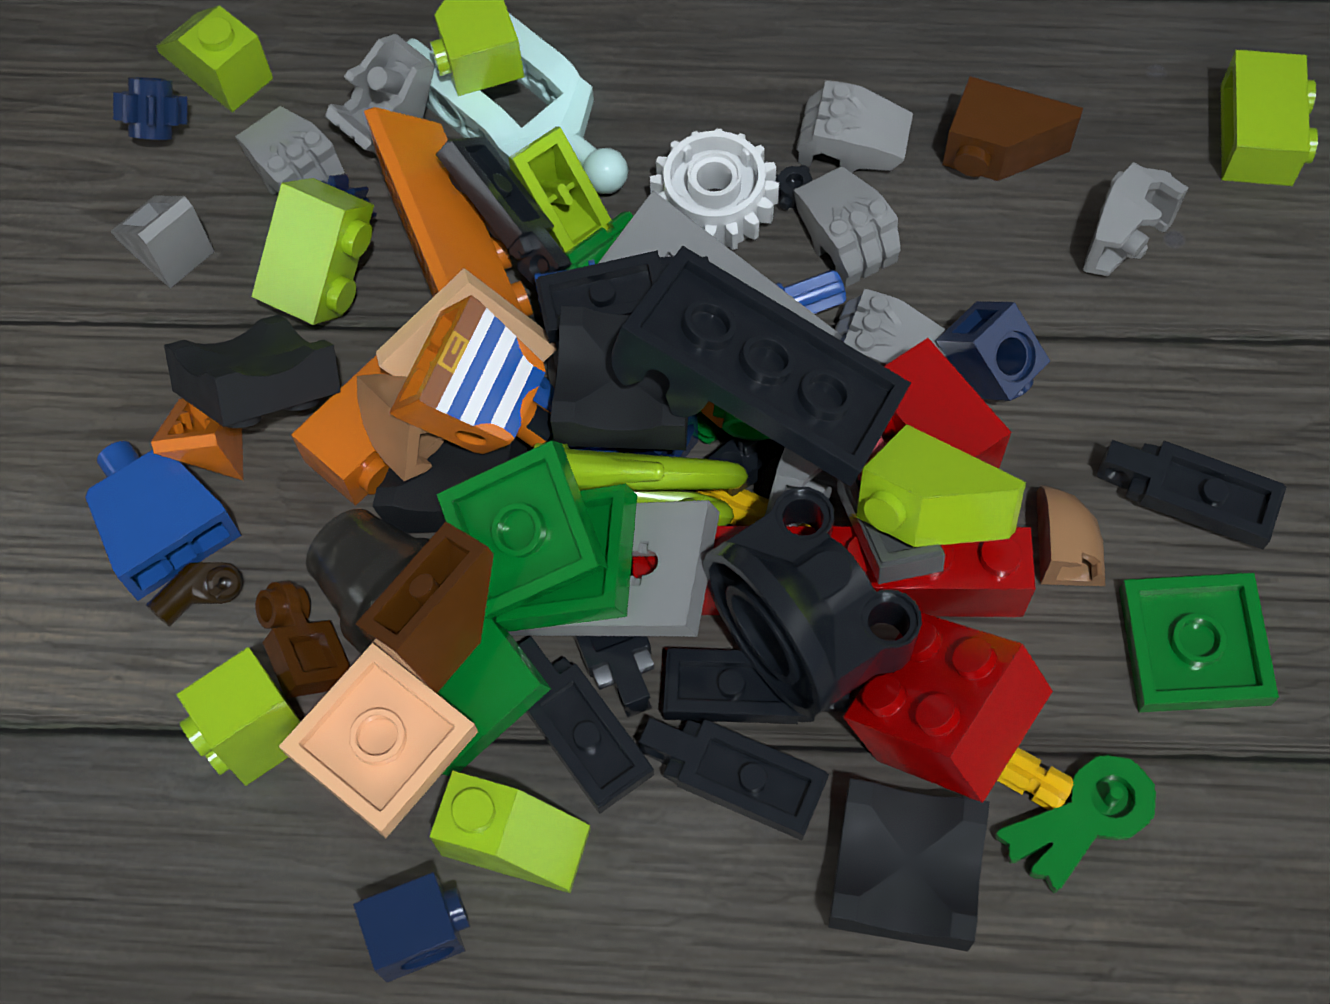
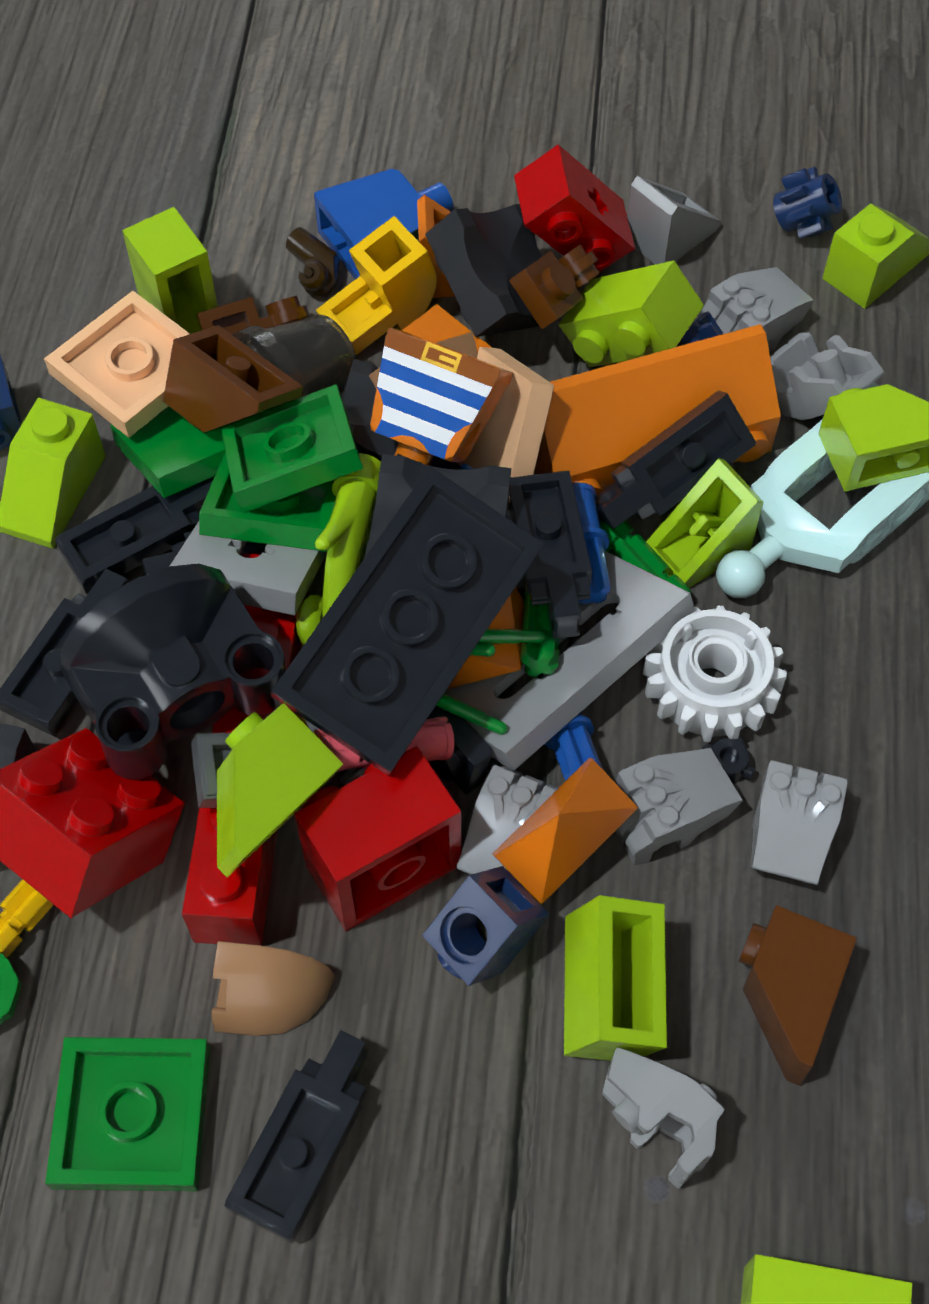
camera: 90 degrees right, 5 degrees down
(169, 305) = (572, 208): none -> red brick
(260, 498) = (391, 288): none -> yellow brick
(274, 316) = (552, 285): none -> reddish brown plate
(904, 282) = (565, 831): none -> orange slope
(1029, 250) = (615, 978): none -> lime piece

